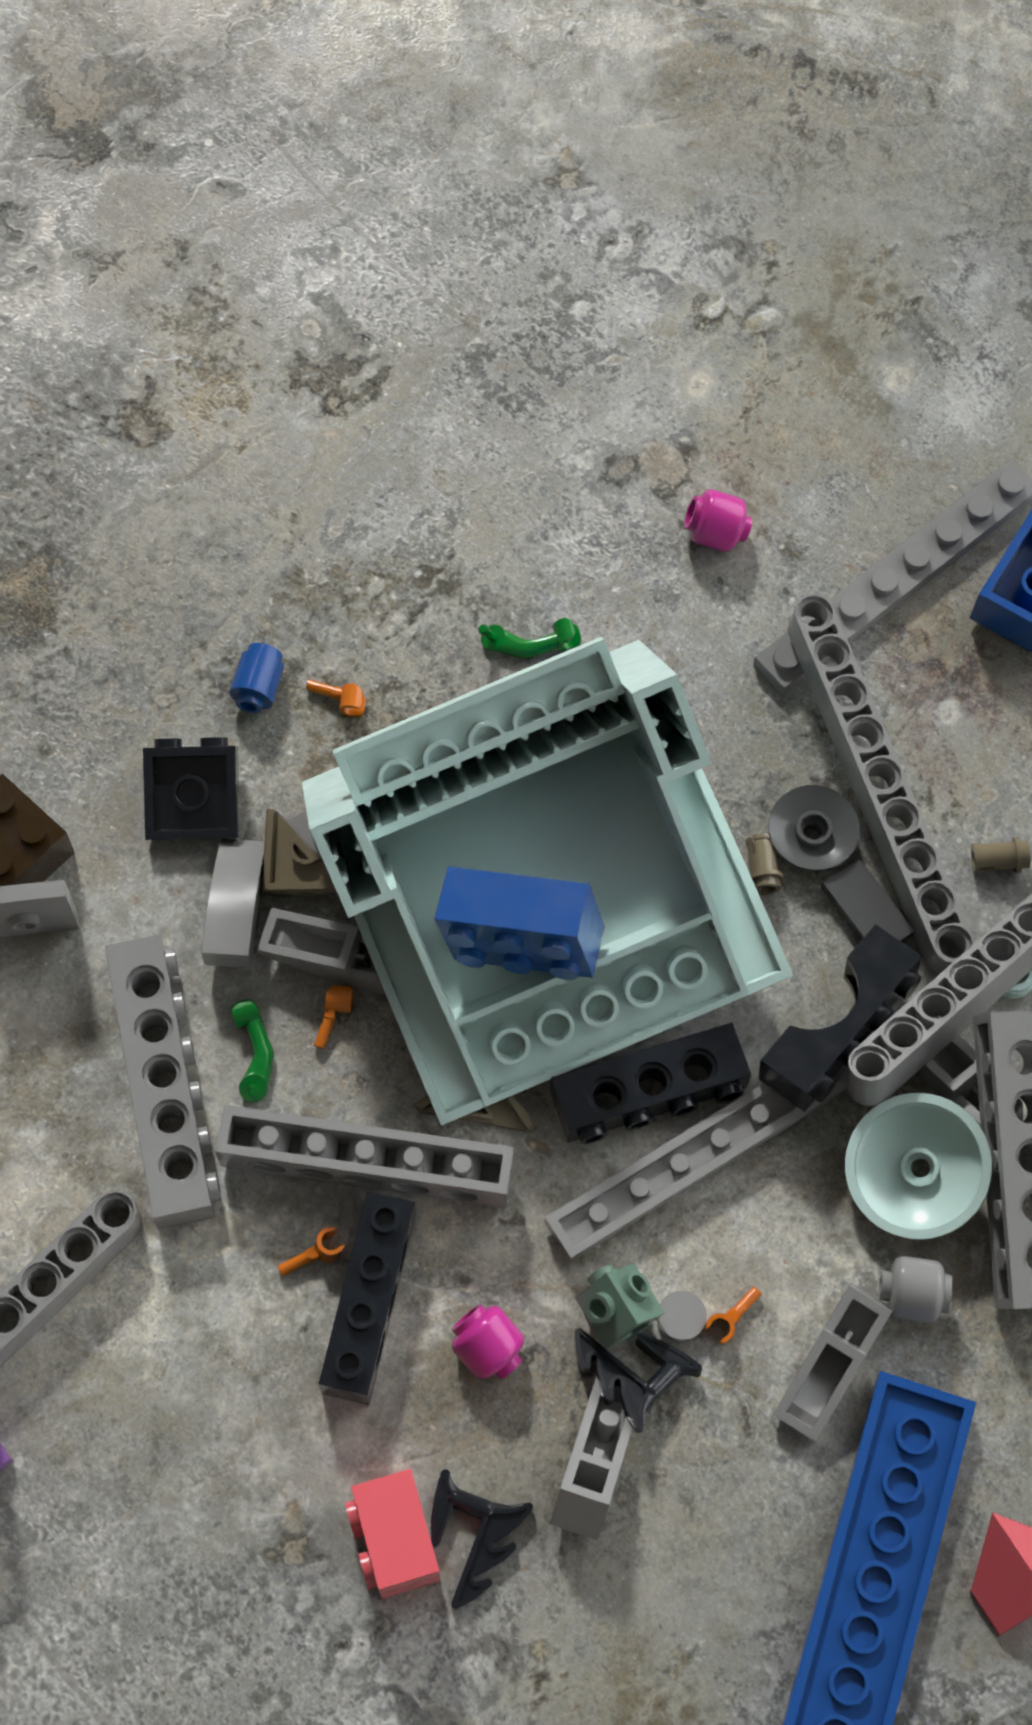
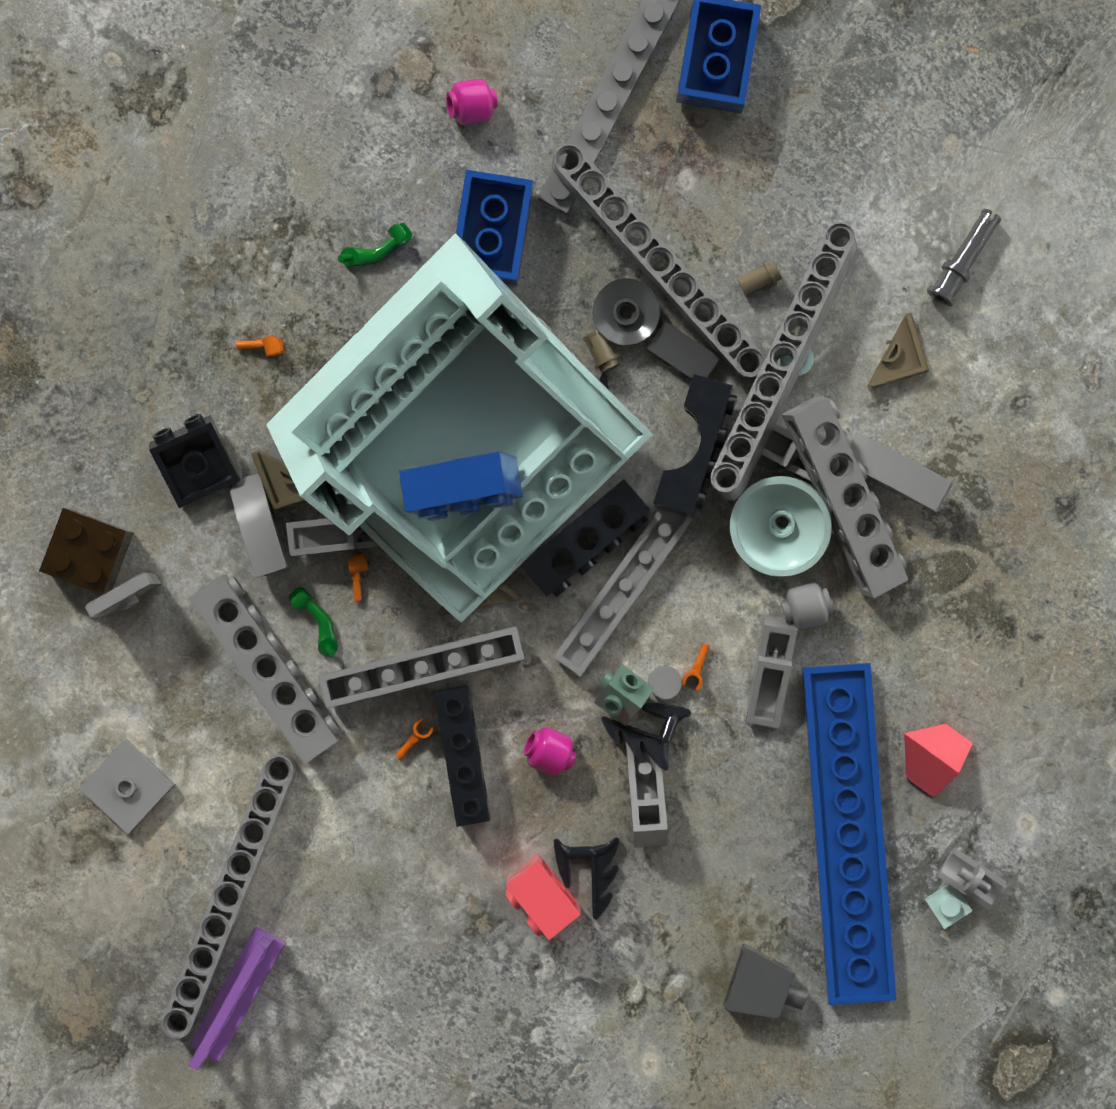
camera: 20 degrees left, 20 degrees up
(257, 677) = (200, 358): blue brick -> none
(701, 644) = (496, 220): none -> blue brick

